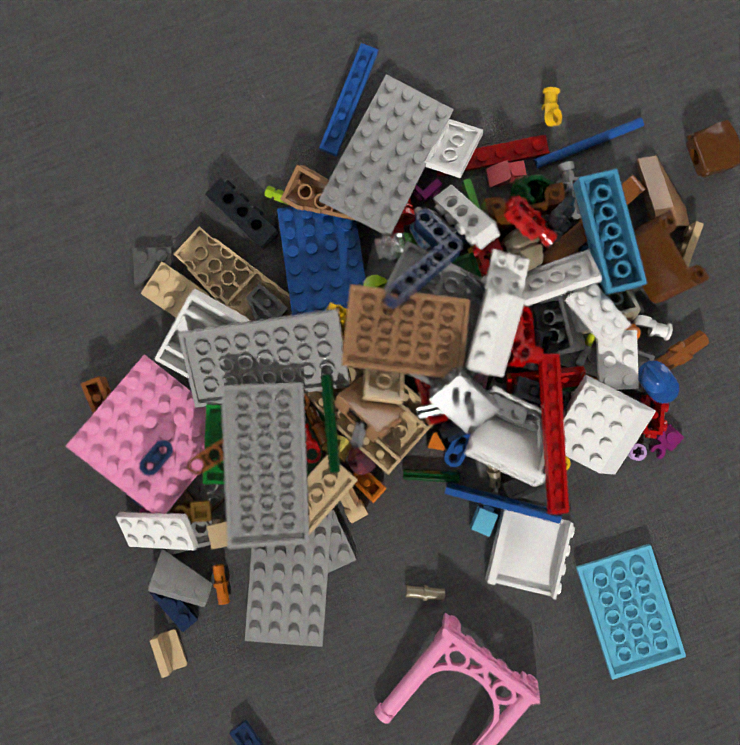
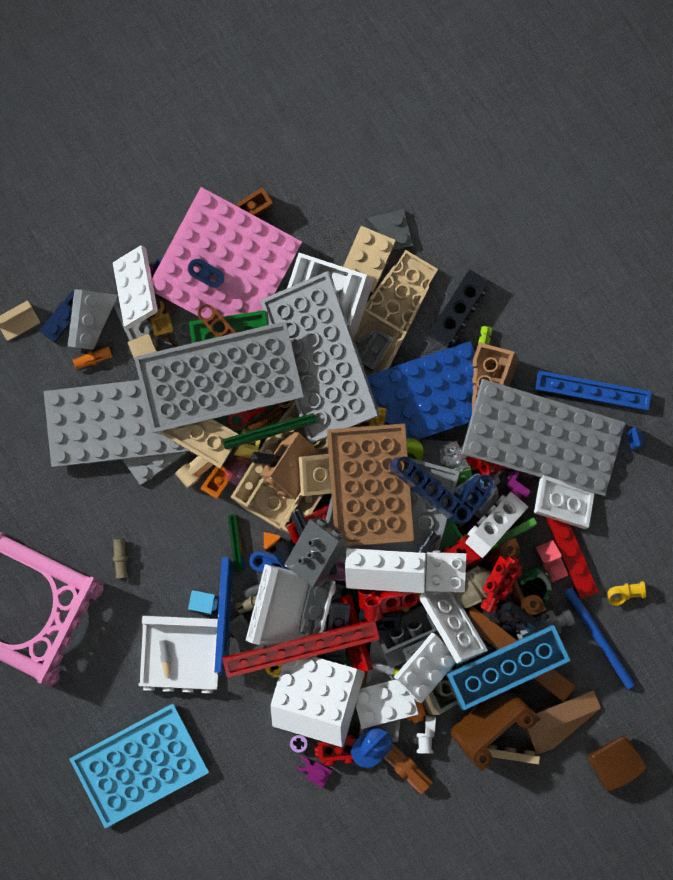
camera: 75 degrees right, 5 degrees down
(405, 67) = (636, 439): none -> blue slope
(530, 566) = (165, 658): none -> light grey piece

